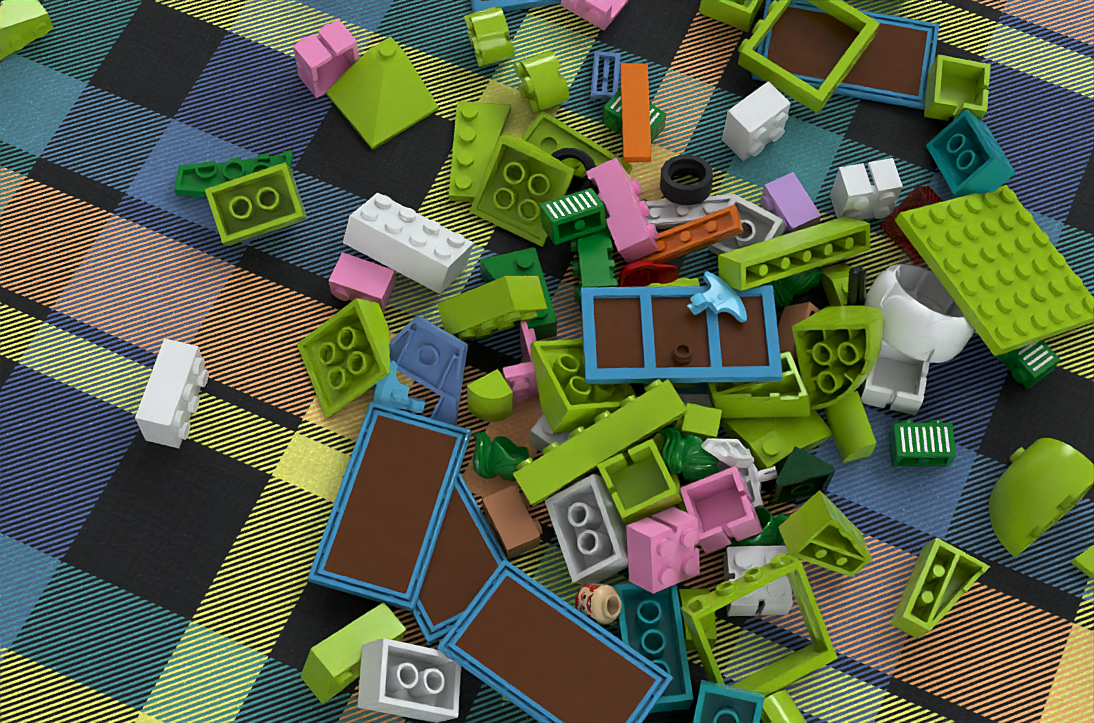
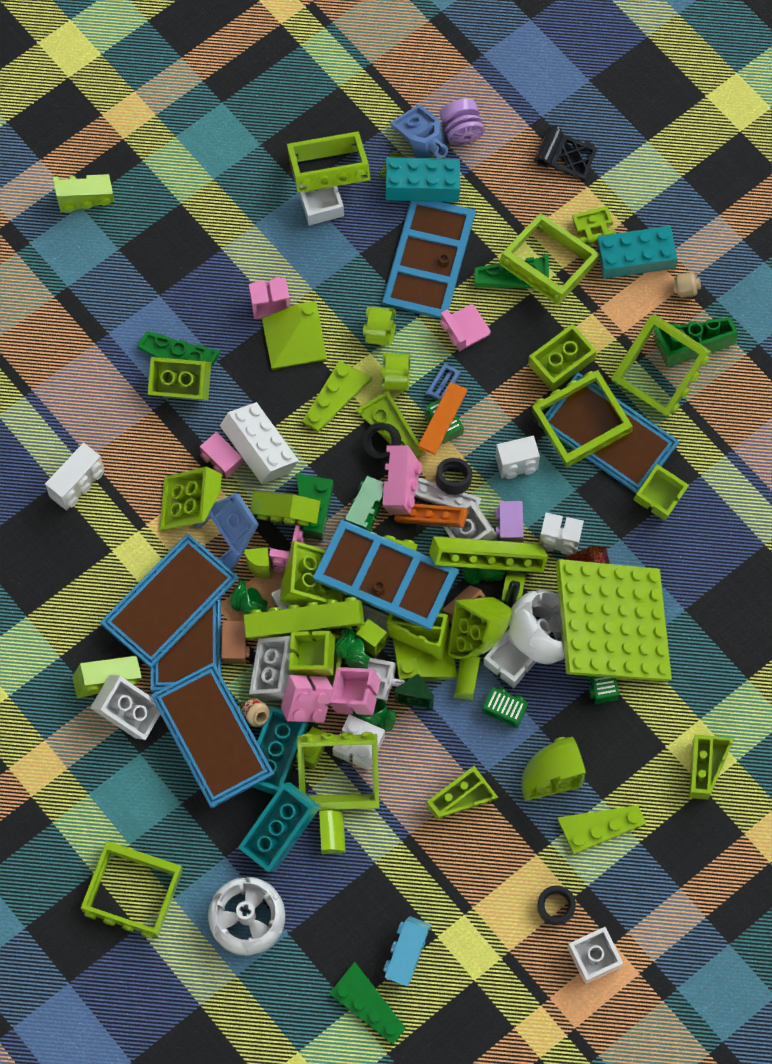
camera: 30 degrees right, 5 degrees up
(395, 394) = (204, 534): medium azure piece -> none
(516, 184) = (347, 437): lime slope -> none
(573, 216) = (365, 470): green brick -> none
(644, 272) = (393, 527): red cap -> none
(719, 299) = (419, 564): medium azure piece -> none
(729, 451) = (378, 659): white tile -> none
(825, 537) = (407, 735): lime wedge -> none
(970, 156) = (642, 540): teal slope -> none

